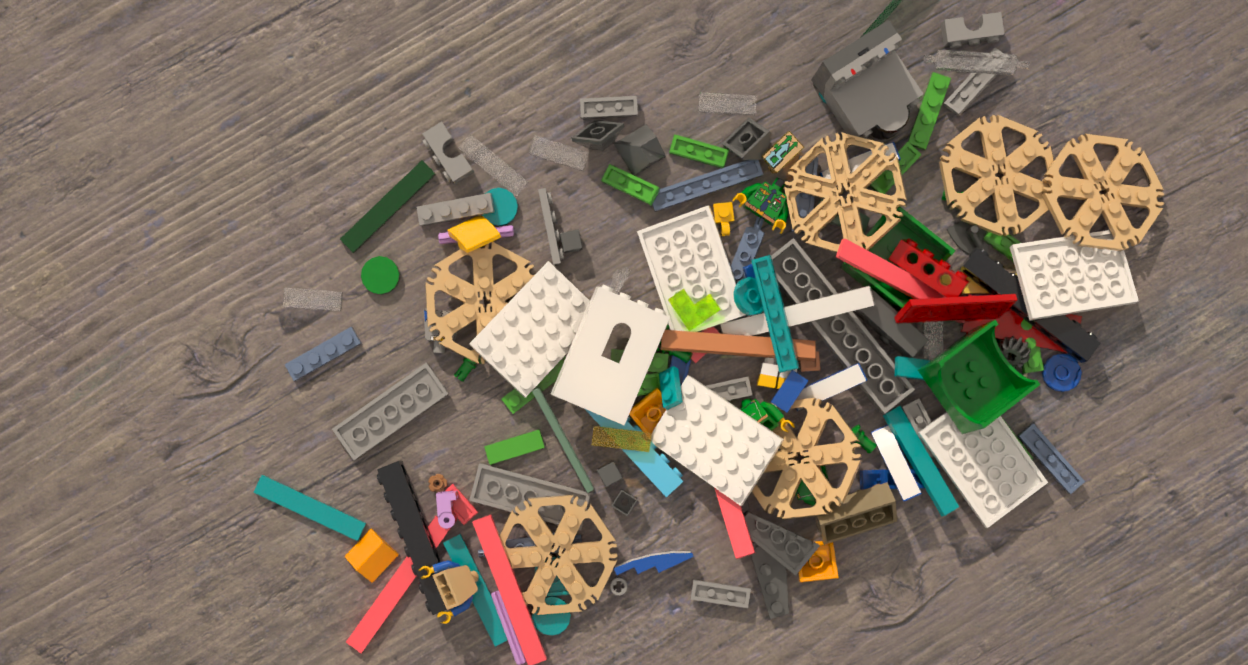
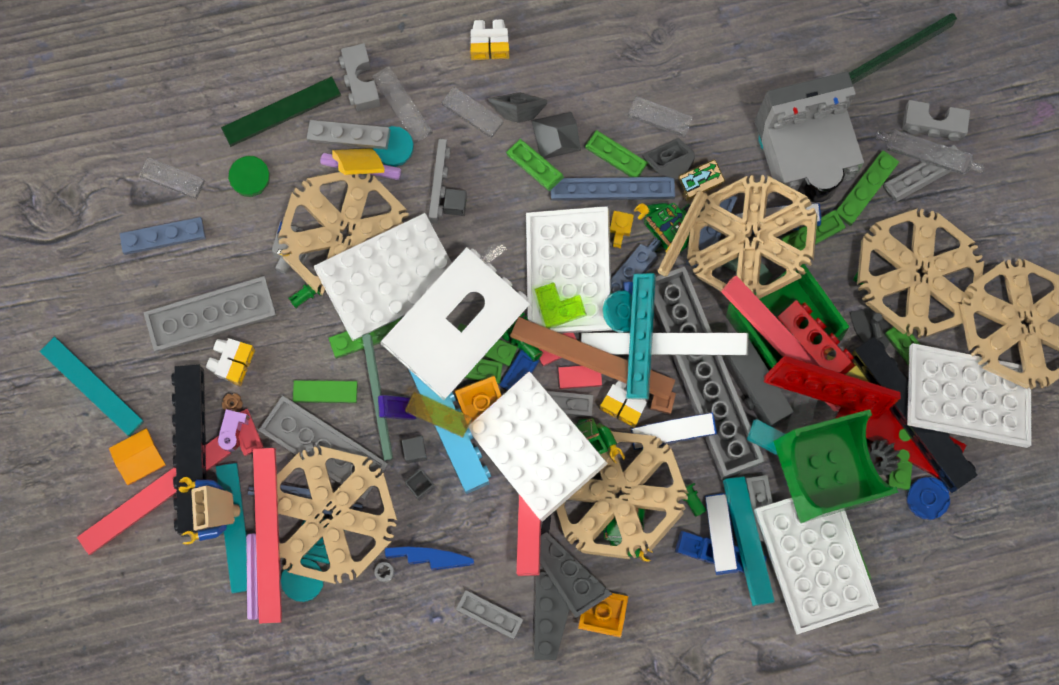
camera: 15 degrees right, 10 degrees down
(421, 455) = (233, 361): none -> hips
(544, 80) = (497, 37): none -> hips
(580, 443) = (394, 407): none -> dark purple tile
(608, 107) = (538, 83): light grey plate -> none
(670, 388) = (507, 379): teal plate -> none
(729, 363) = (578, 377): none -> coral tile
(783, 209) = (682, 234): none -> tan axle
(789, 391) = (631, 421): blue tile -> none
(859, 513) = (662, 573): dark tan brick -> none
(1051, 458) = (890, 585): sand blue plate -> none

